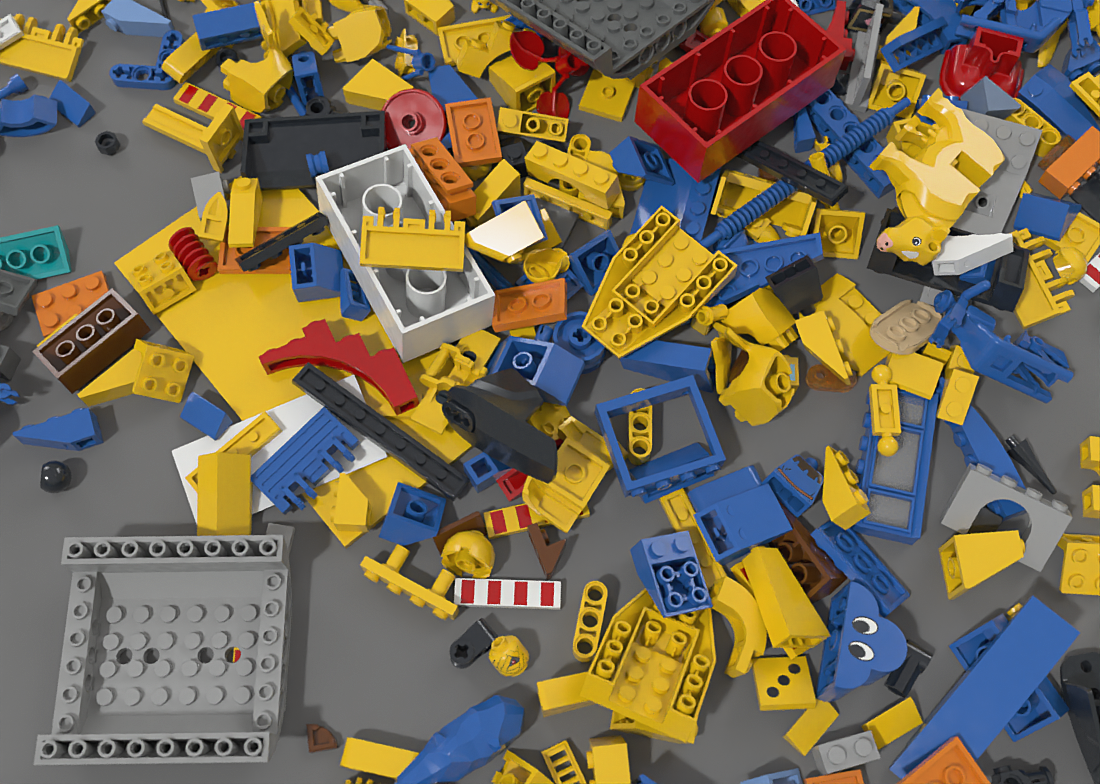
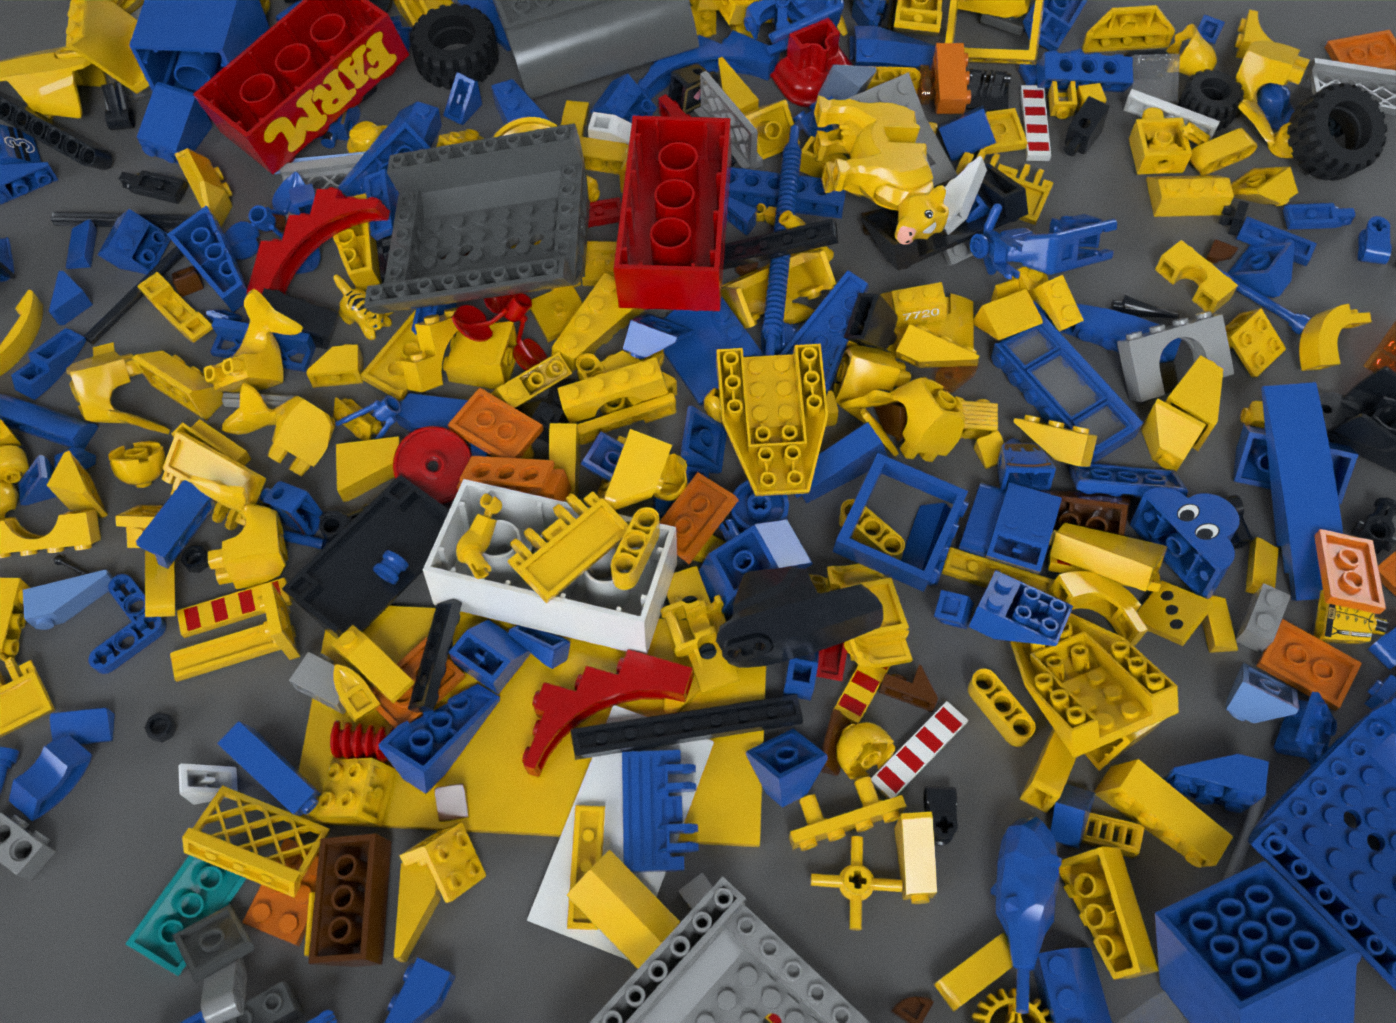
camera: 45 degrees left, 5 degrees down
(59, 254) = (247, 863): none -> yellow fence
(94, 197) = (202, 782): none -> white slope
(129, 220) = (270, 769): none -> blue slope
(203, 339) = (451, 802): none -> slope
(205, 416) = (526, 862): blue slope -> none
(228, 294) = (433, 742): none -> blue wedge
(311, 30) = (261, 463): yellow hinge -> none
(351, 508) = (734, 805): yellow slope -> none
(364, 187) = (478, 538): none -> yellow arm
(364, 635) = (848, 888): none -> yellow bar
(422, 652) = (916, 856): none -> slope
(440, 291) = (635, 559): none -> yellow beam
(508, 655) = (977, 792): yellow head -> none
(554, 733) = (1071, 815): none -> blue slope
(607, 121) = (594, 322): none -> yellow wedge
(630, 527) = (954, 609): none -> blue brick
(708, 315) = (835, 399): yellow pin -> none
(788, 448) = (988, 449): none -> yellow slope
(802, 419) = (980, 418): none -> yellow brick
(839, 232) = (850, 256): yellow slope -> none
(850, 304) = (919, 304): none -> yellow brick
(884, 410) = (1025, 357): yellow plate -> none
(905, 327) = (970, 287): tan tile -> none
(909, 42) = (753, 85): blue fence -> none
(932, 568) = (1170, 434): none -> yellow slope
(1070, 264) = (1019, 152): yellow hair -> none

